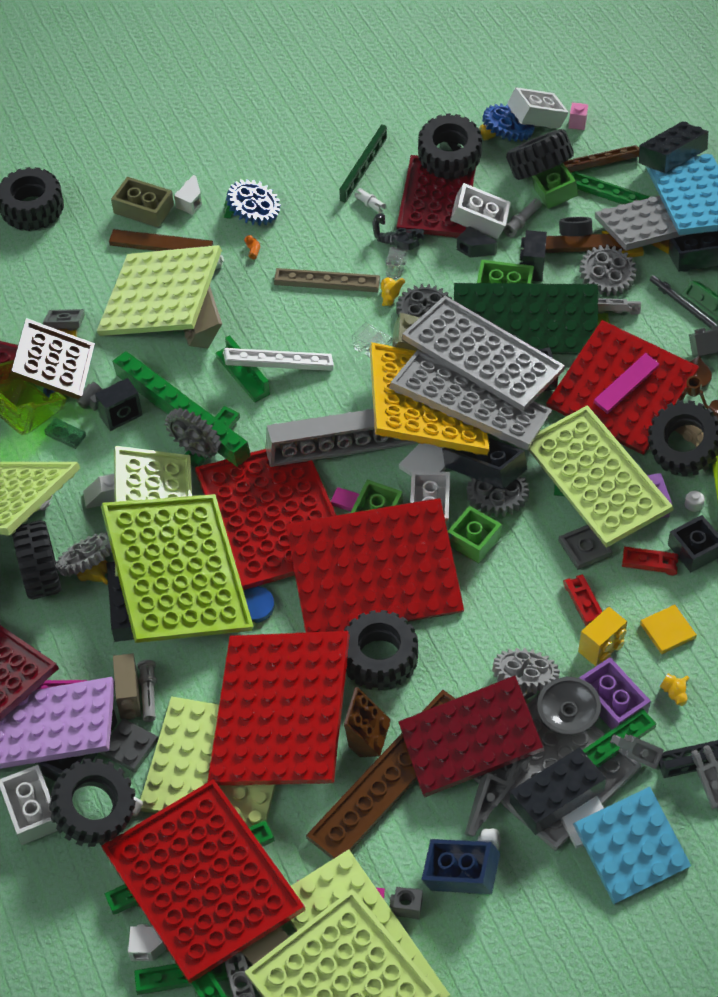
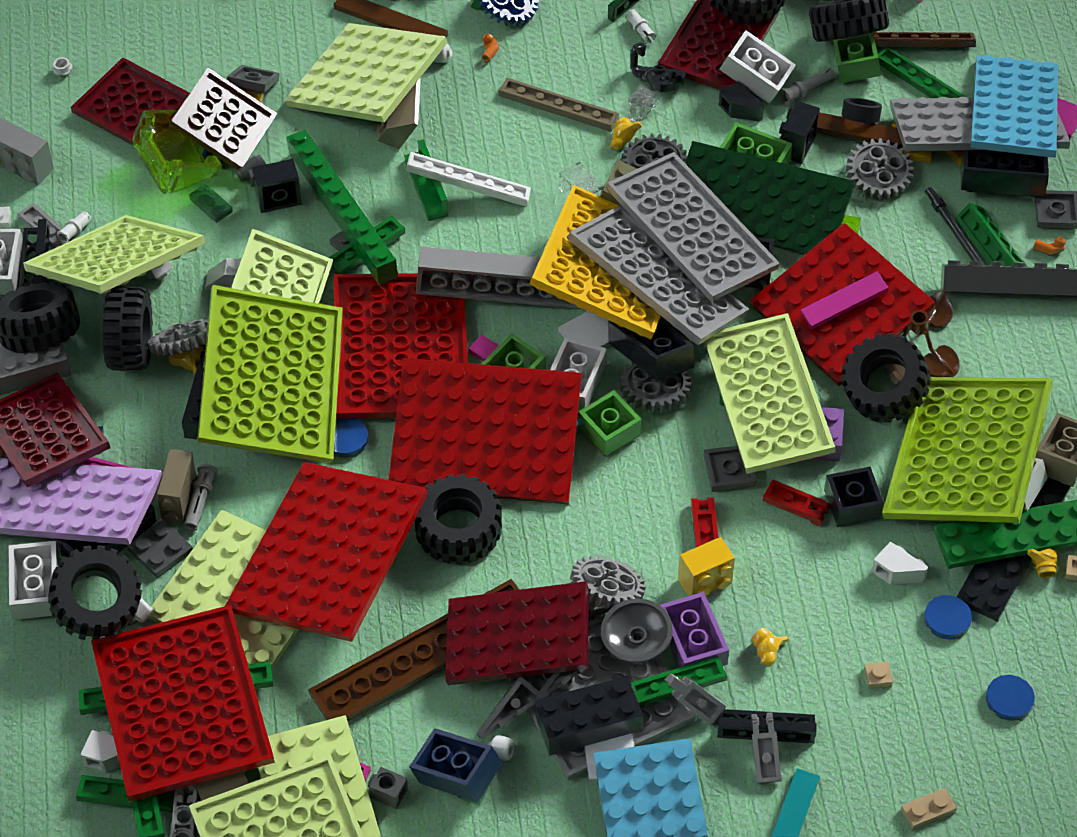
camera: 15 degrees right, 0 degrees up
(192, 433) = (340, 235): dark grey gear -> none
(365, 726) = (409, 591): reddish brown slope -> none
(619, 306) = (874, 212): light grey hinge -> none
(668, 629) = (786, 581): yellow tile -> none
(673, 147) = (1012, 45): black brick -> none
(694, 501) = (874, 450): white piece -> none

